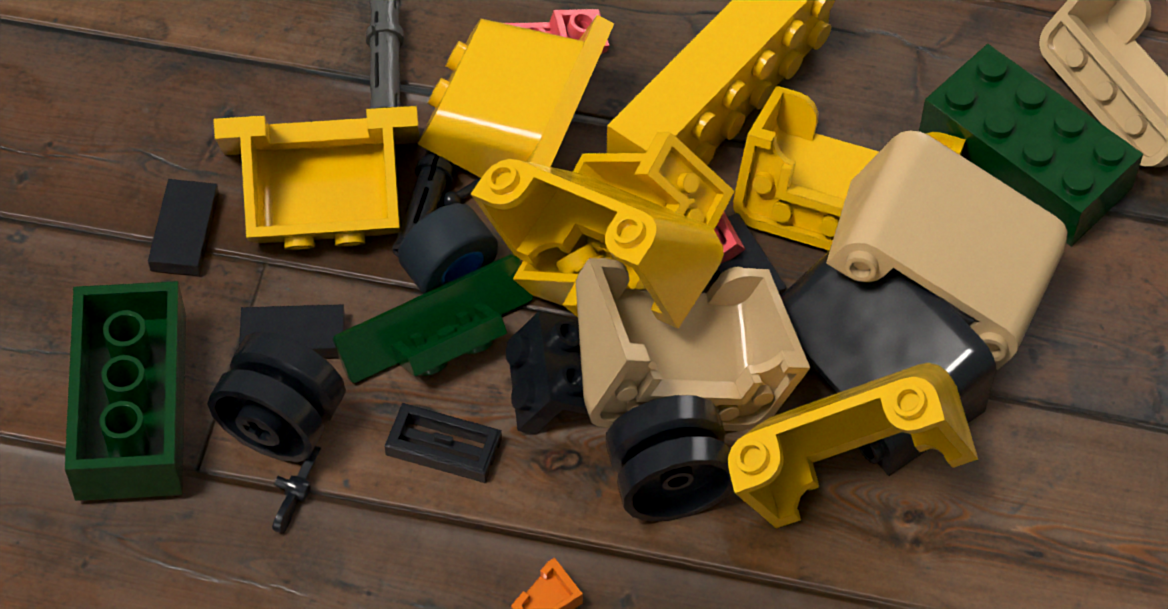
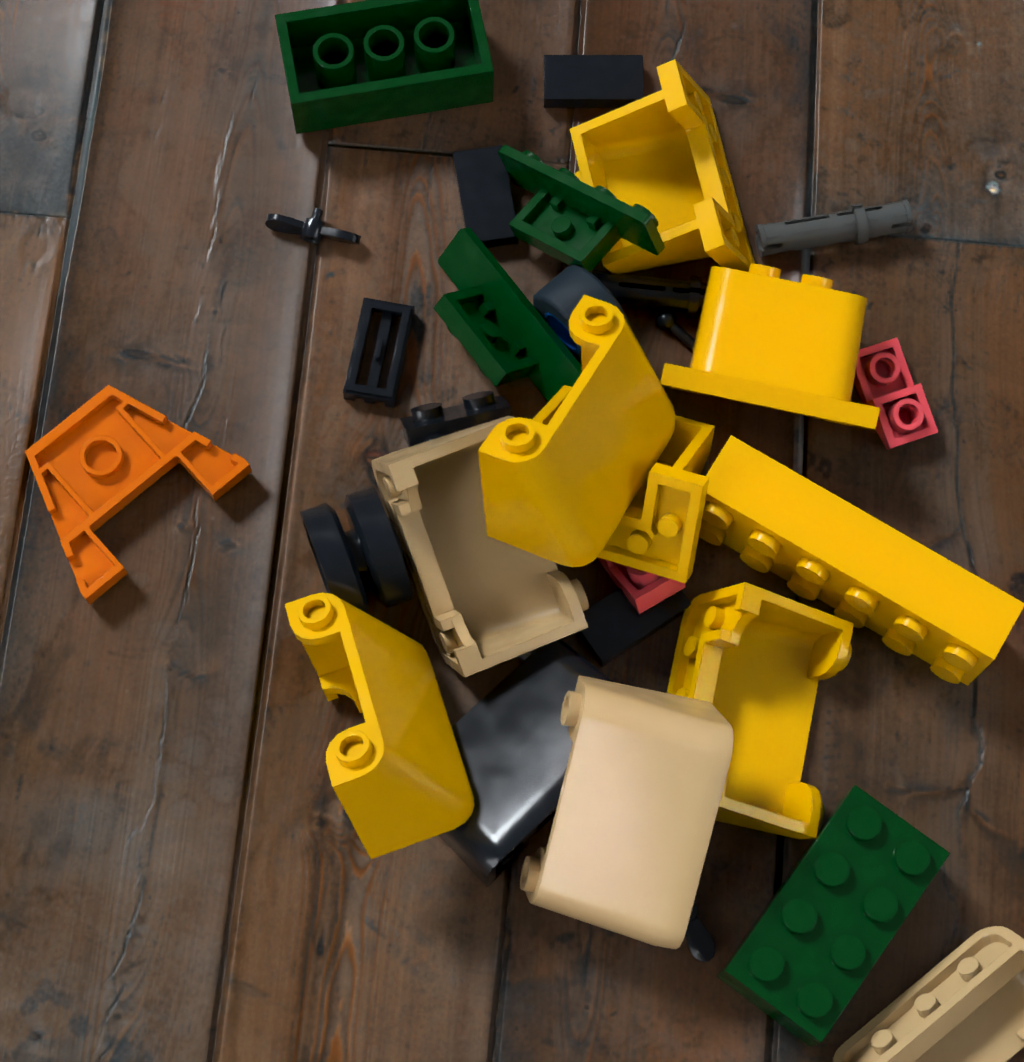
camera: 80 degrees right, 15 degrees up
(277, 396) = (382, 183): black wheel -> none
(347, 241) = (571, 217): none -> dark green bracket

